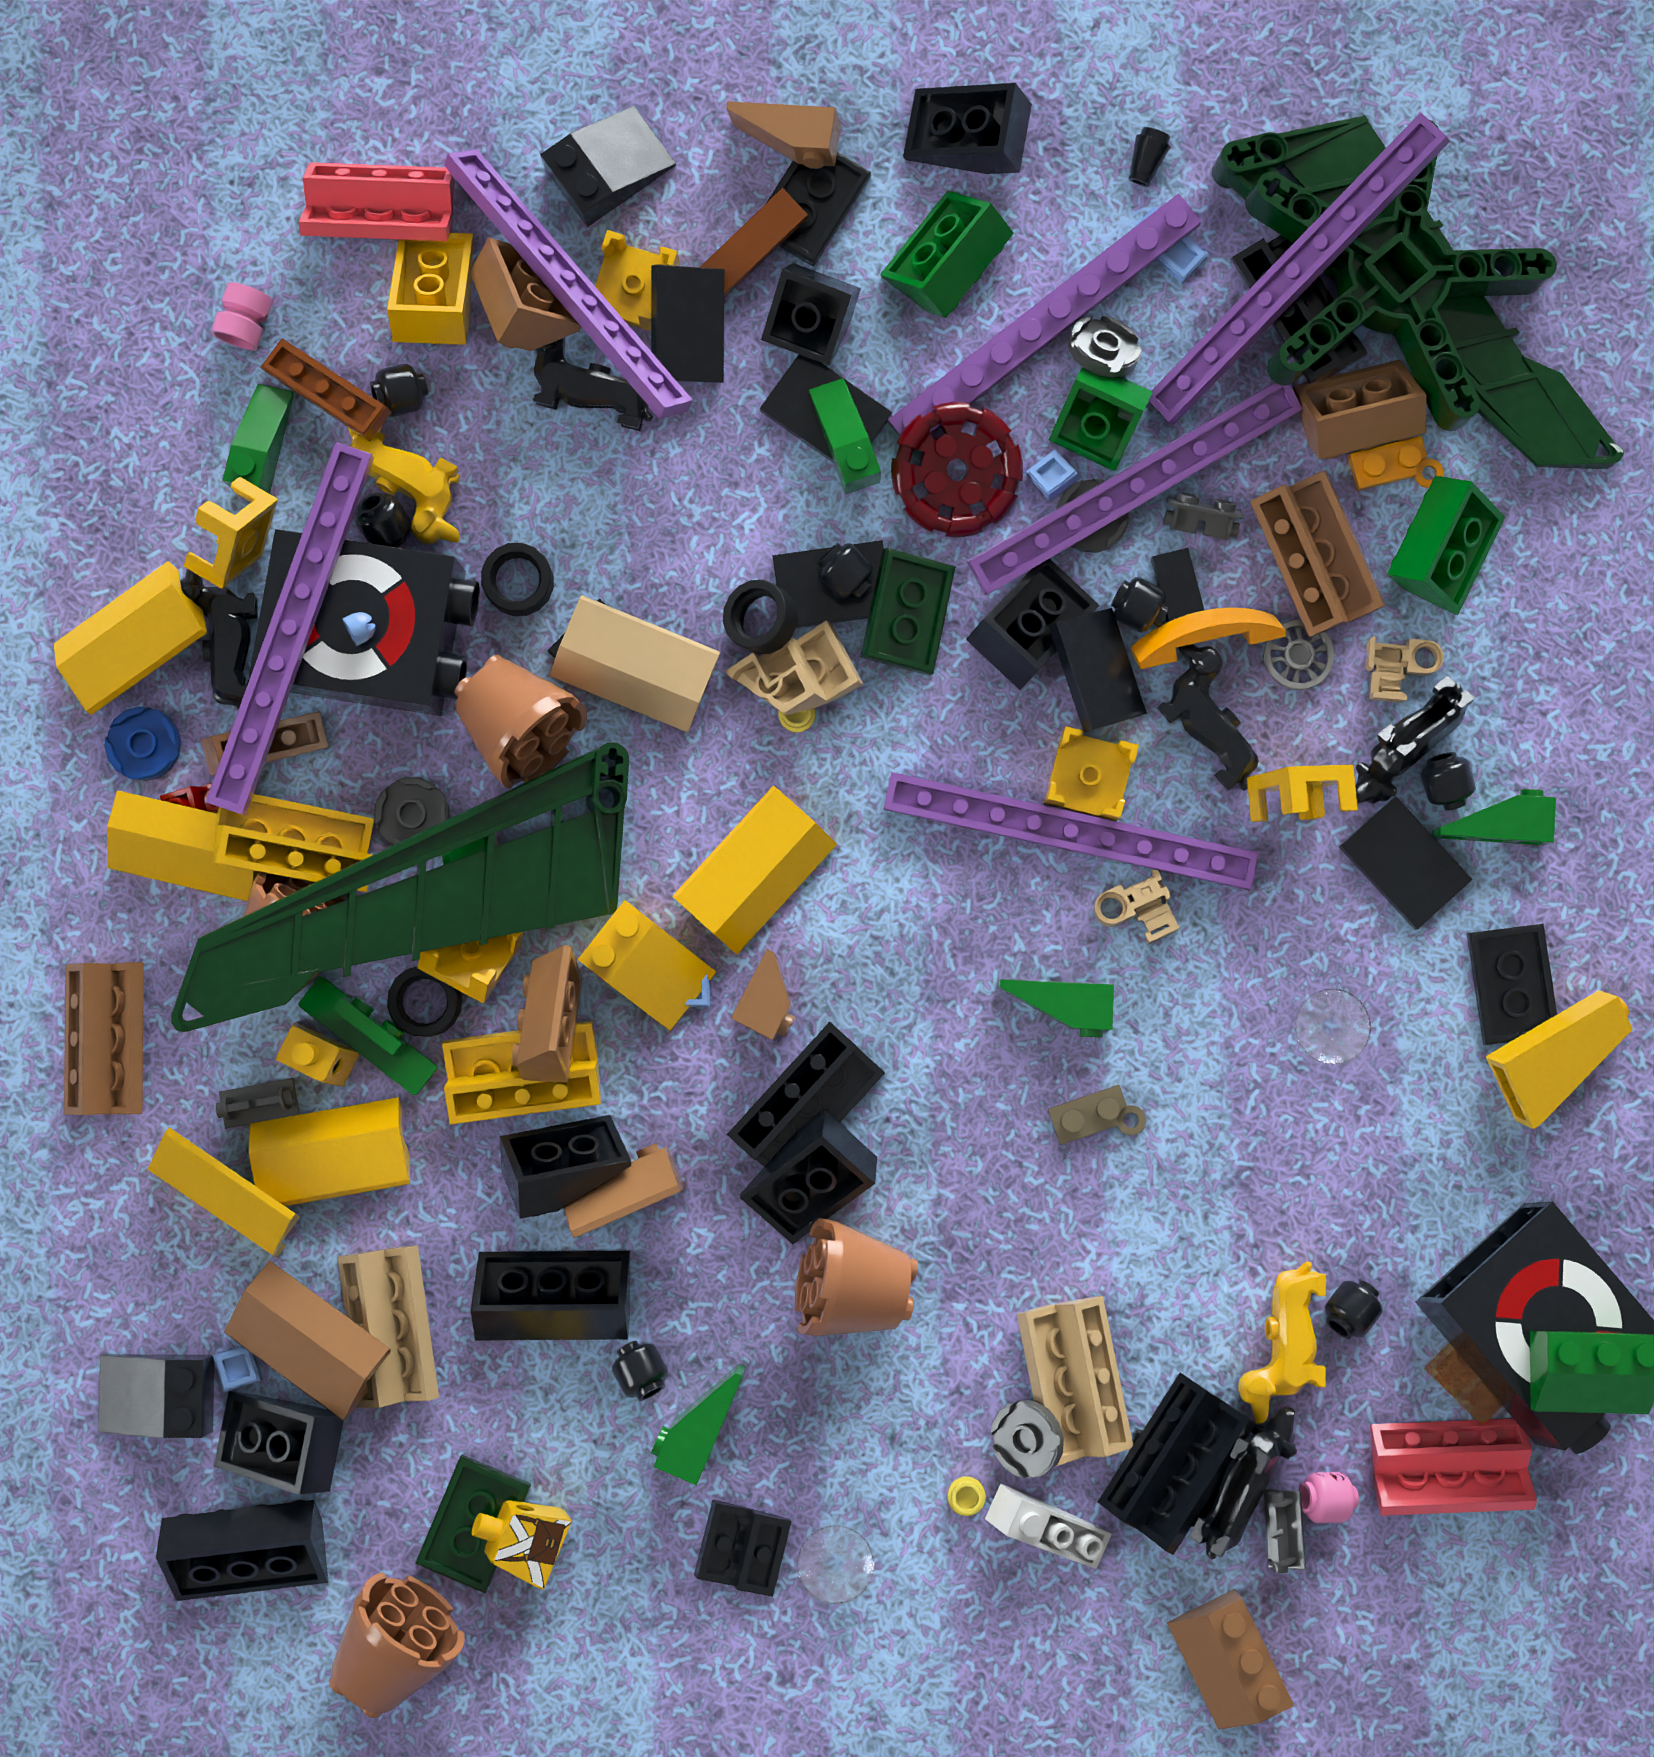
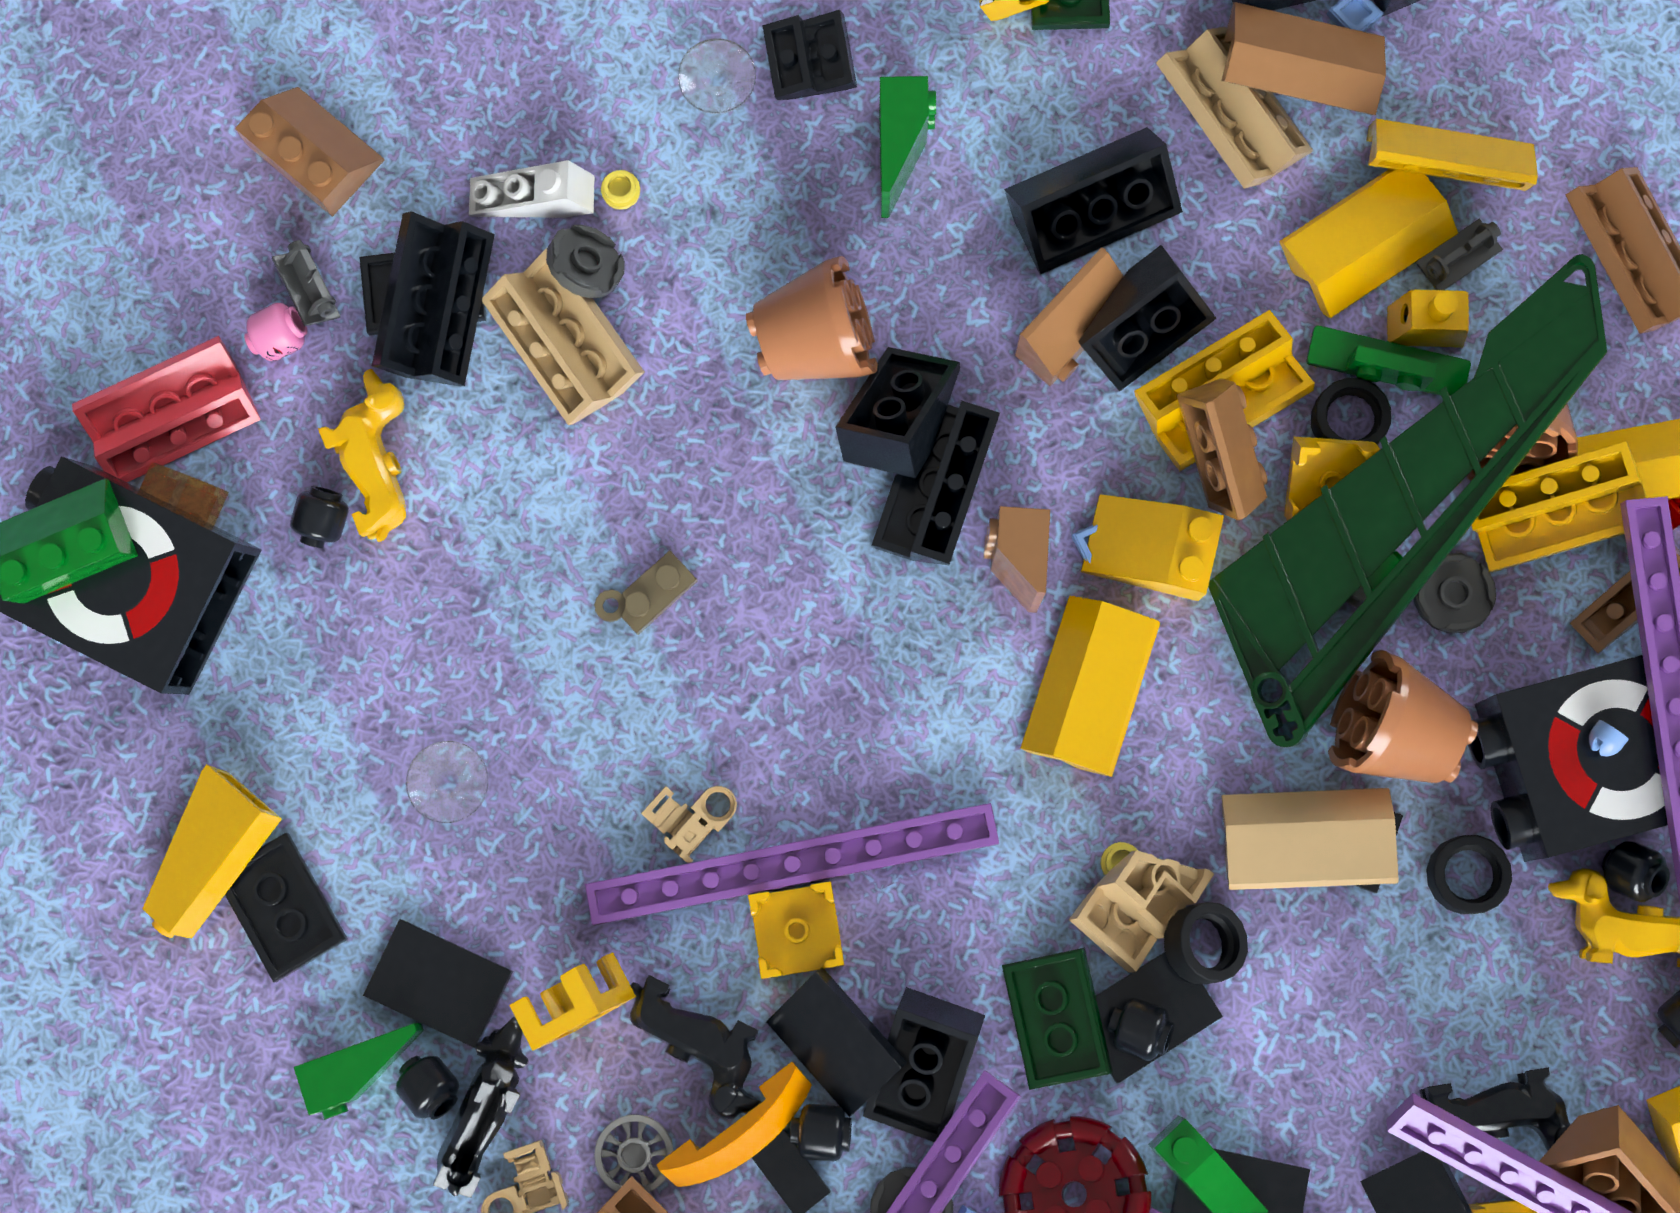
camera: 155 degrees right, 5 degrees down
(639, 1370) = (979, 167): black head -> none
(1071, 1004) = (716, 690): green slope -> none
(1245, 1483) = (360, 308): black animal -> none

